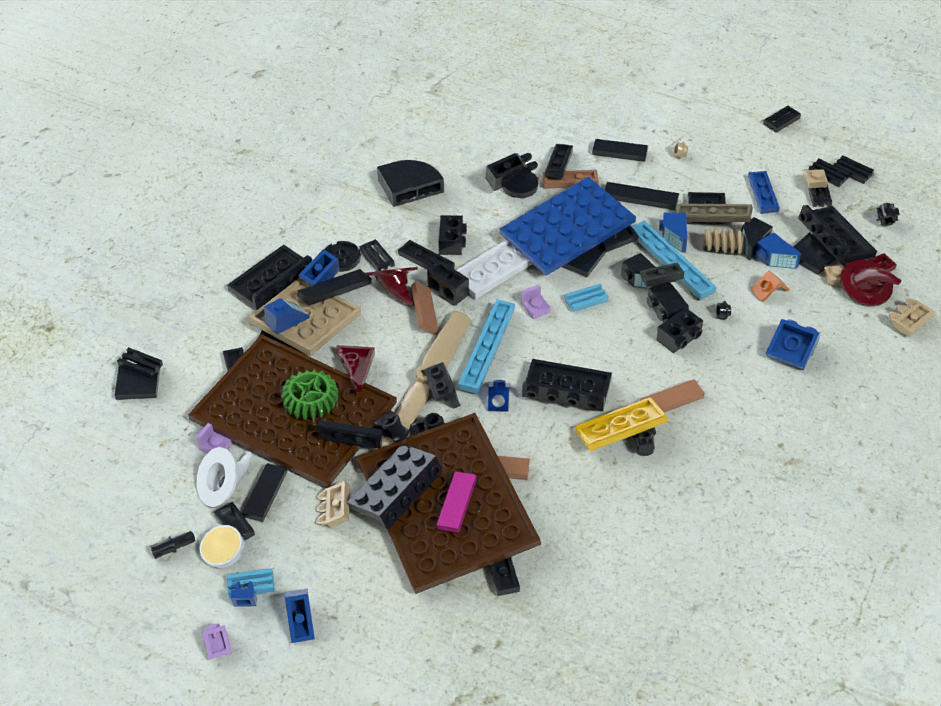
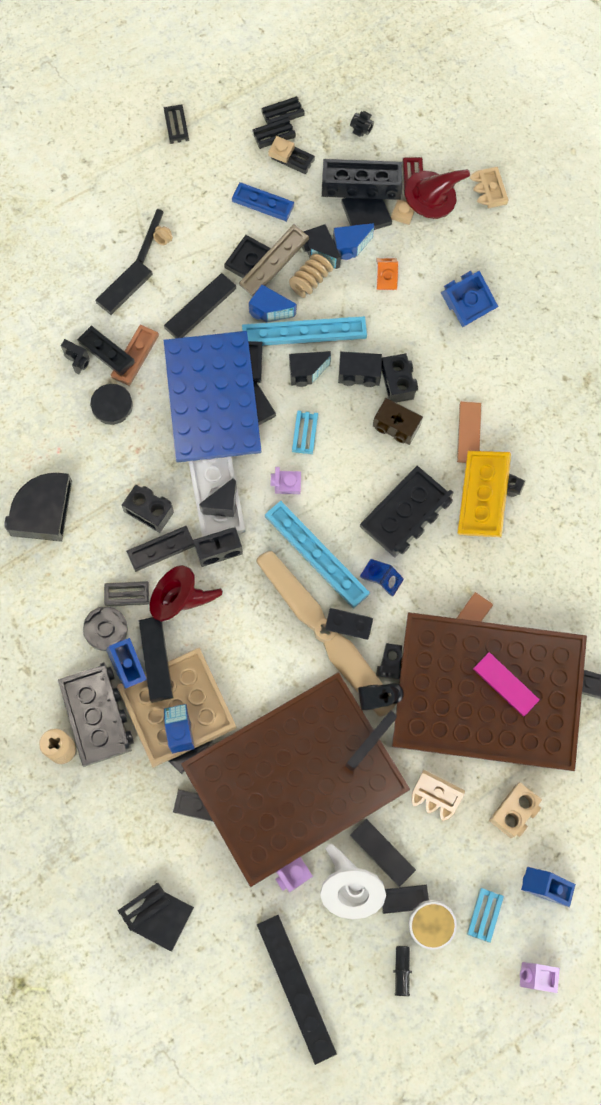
camera: 65 degrees left, 25 degrees up
(123, 484) = (296, 989): none -> black plate
(231, 259) = (49, 742): none -> tan piece
(243, 598) = (504, 930): blue tile -> none
(309, 389) = (316, 743): bright green gear -> none
(353, 559) = (511, 807): none -> tan brick
(356, 363) = (272, 687): dark red wing -> none
(396, 485) = (455, 729): black bracket -> none
(424, 307) = (232, 585): nougat tile -> none
(487, 266) = (222, 501): none -> black slope
(509, 170) = (101, 406): black hinge -> none
(540, 150) = (76, 354): none -> black bracket
(640, 345) = (389, 414): none -> dark brown brick
(662, 274) = (335, 353): pearl dark grey plate -> none
(668, 146) = (149, 236): none -> black bar
(723, 310) = (393, 328): black plate -> none

